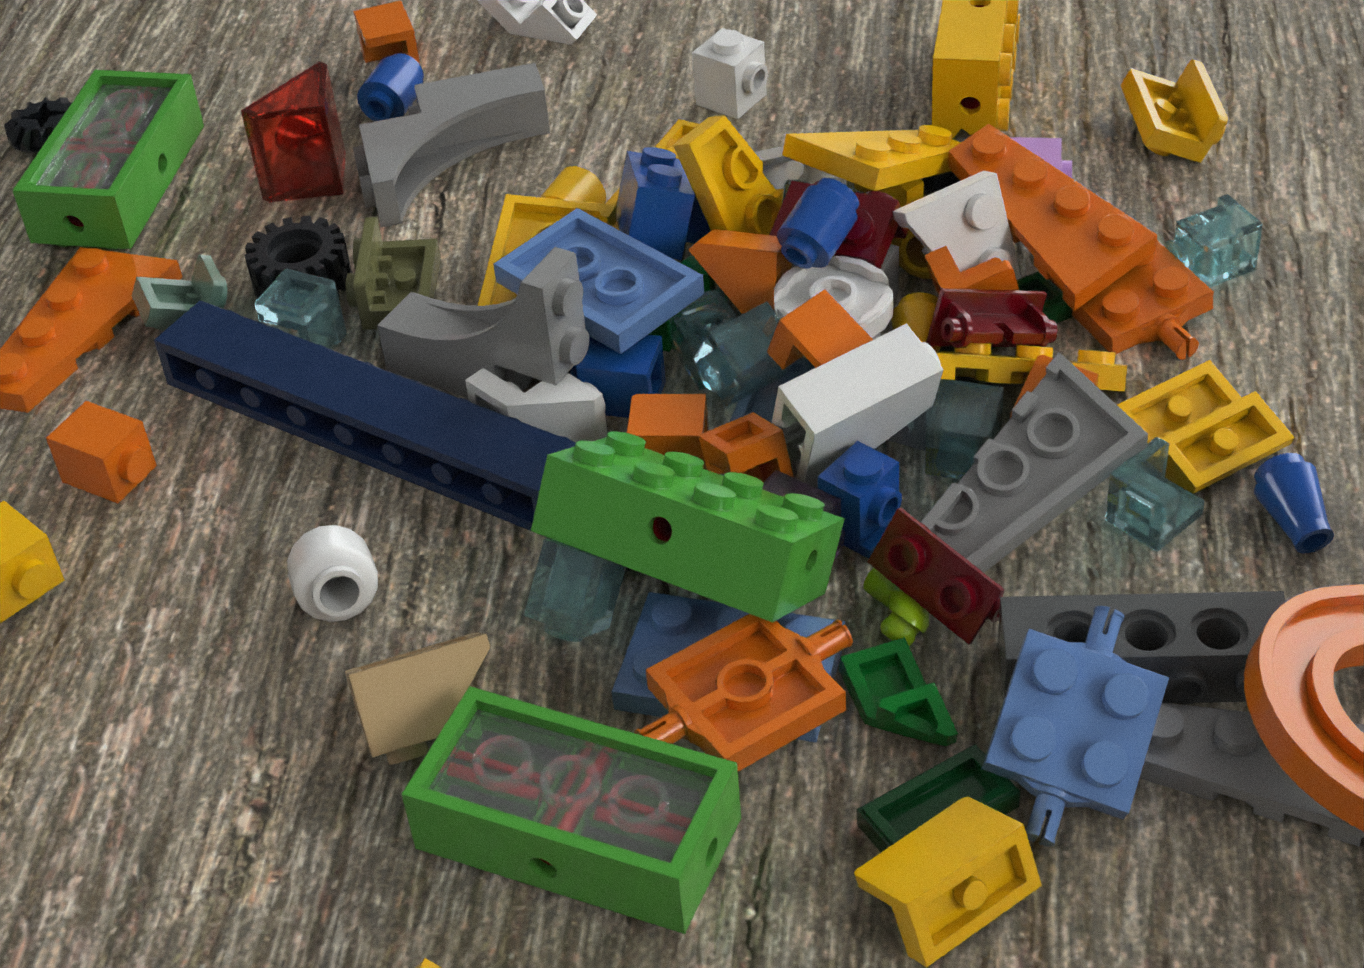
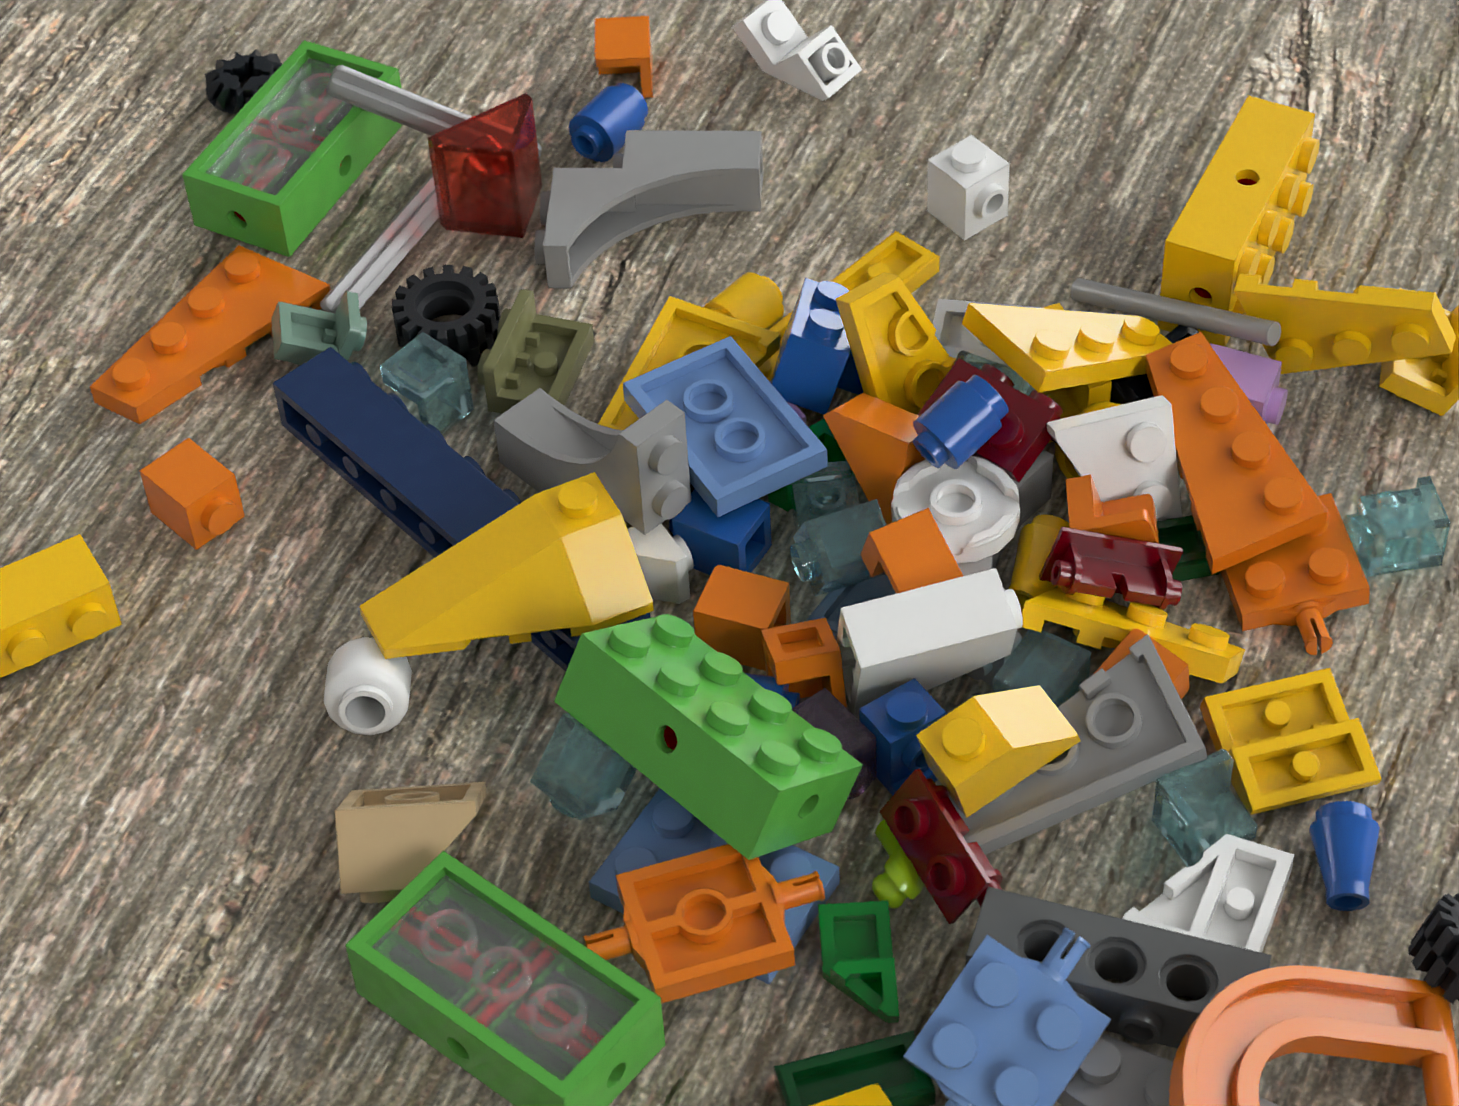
camera: 15 degrees right, 5 degrees up
(190, 97) = (393, 102): none -> light grey axle
(224, 219) = (387, 249): none -> light grey axle
(468, 425) = (534, 569): none -> yellow wedge
(956, 475) = (994, 744): none -> yellow slope
(967, 121) = (1176, 311): none -> light grey bar
(1105, 98) = (1346, 328): none -> yellow wing
(1207, 554) = (1224, 896): none -> white wing

